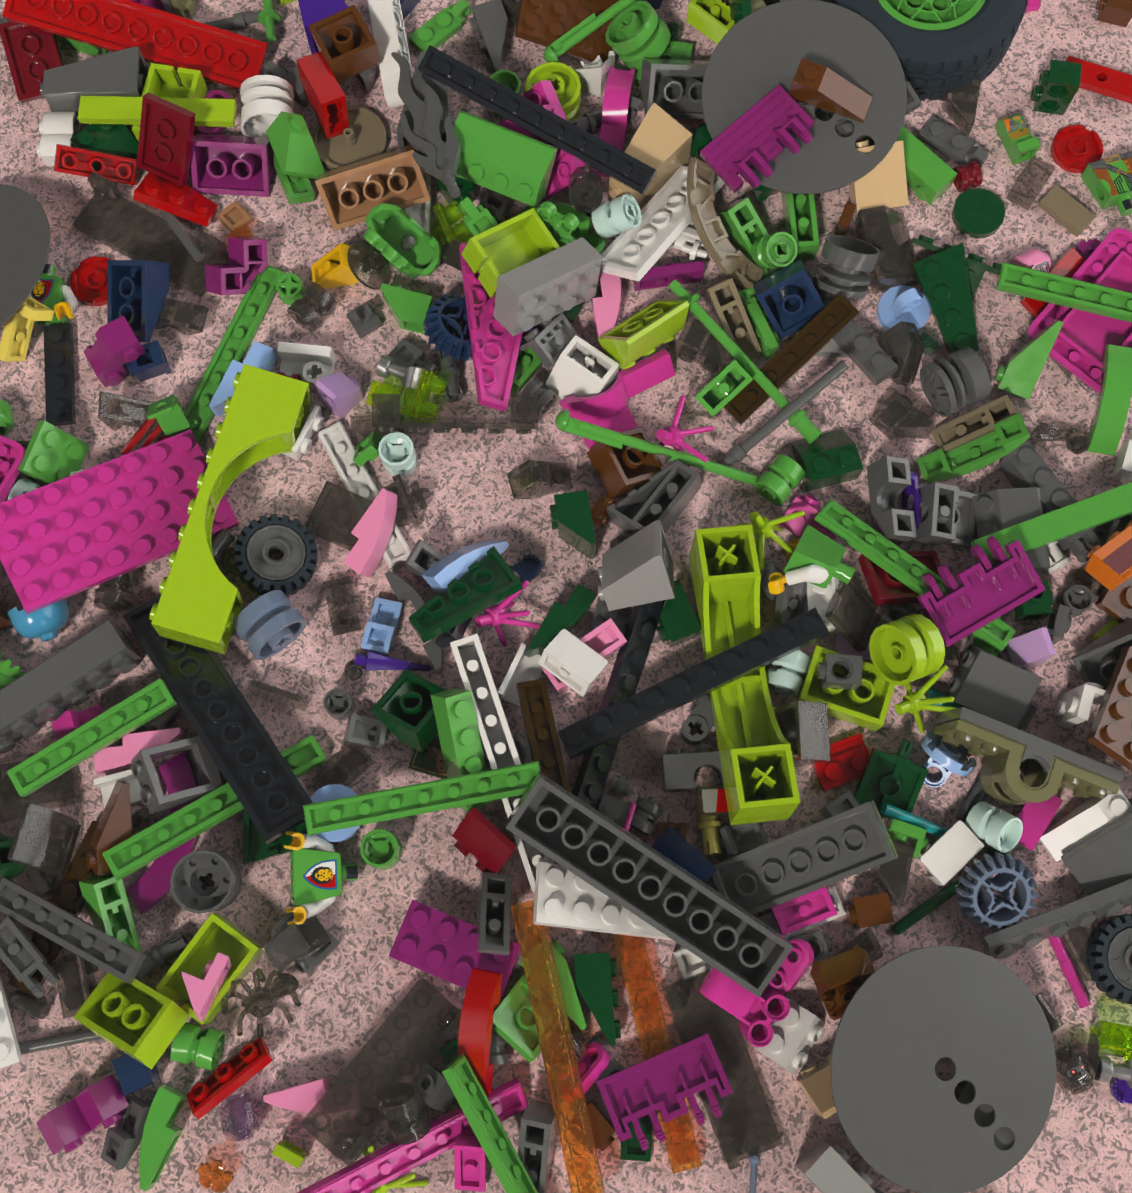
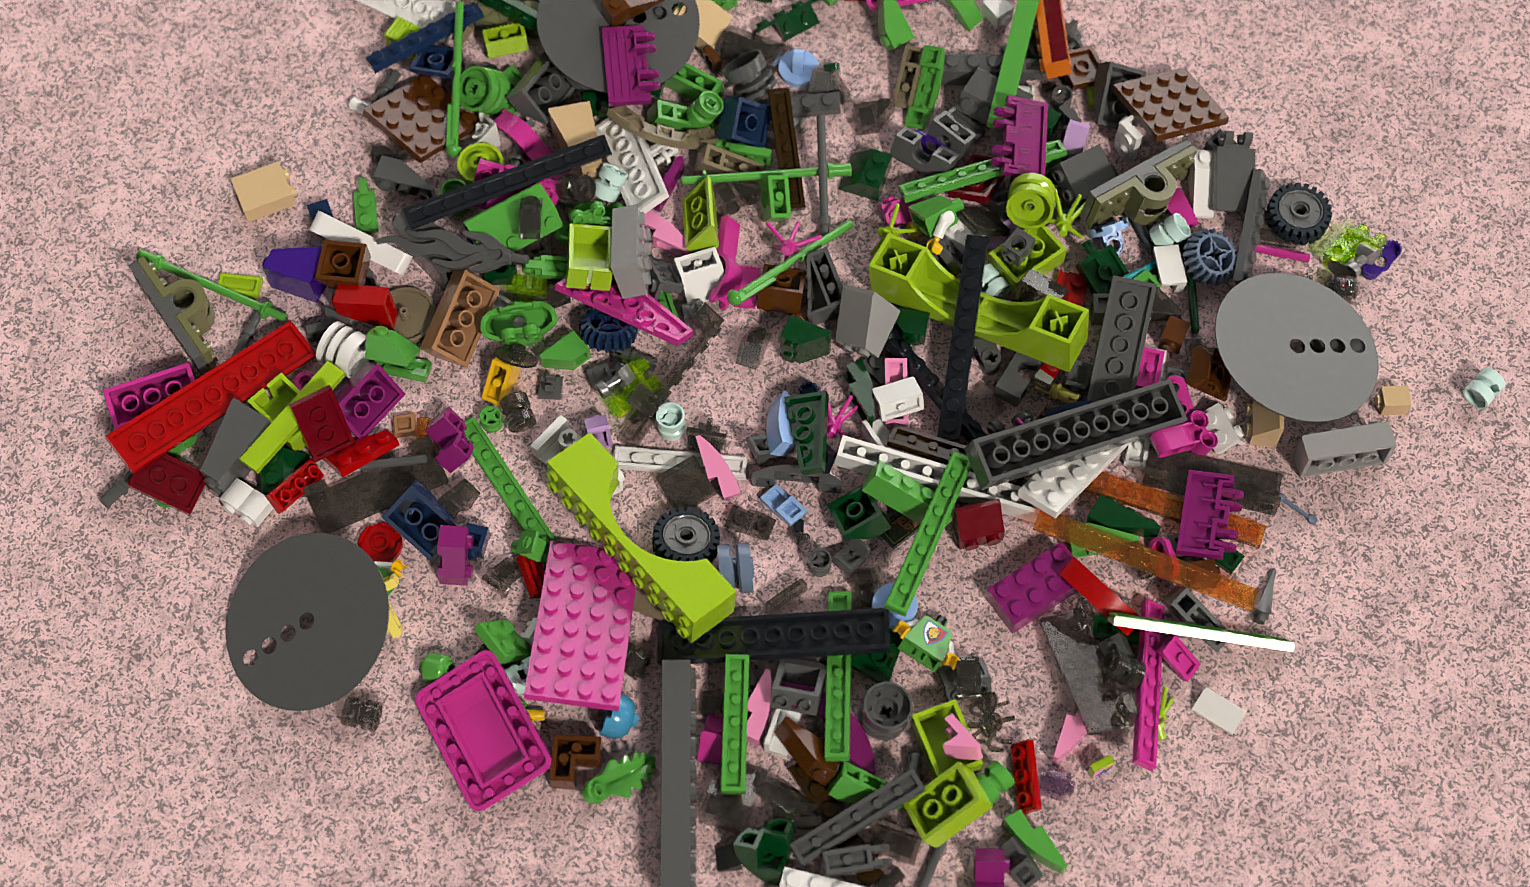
camera: 55 degrees left, 10 degrees down
(59, 374) = (434, 609): black plate -> none
(133, 1074) = (981, 833): dark blue brick -> none
(214, 1176) = (1084, 824): clear orange plant -> none
(257, 356) = (535, 485): light blue slope -> none
(367, 449) = (651, 437): bright green plate -> none
(375, 661) = (807, 520): dark purple piece -> none
(381, 849) = (938, 592): bright green wheel -> none
(493, 913) = (1029, 543): dark grey slope -> none
(504, 166) = (530, 218): none -> clear smoke slope
(515, 1020) = (1109, 571): bright green plate -> none
(780, 479) = (861, 208): bright green wheel -> none
(948, 294) = (808, 33): dark green wing -> none
(955, 381) = (873, 68): dark grey wheel -> none
(1075, 439) = (961, 32): clear smoke piece -> none

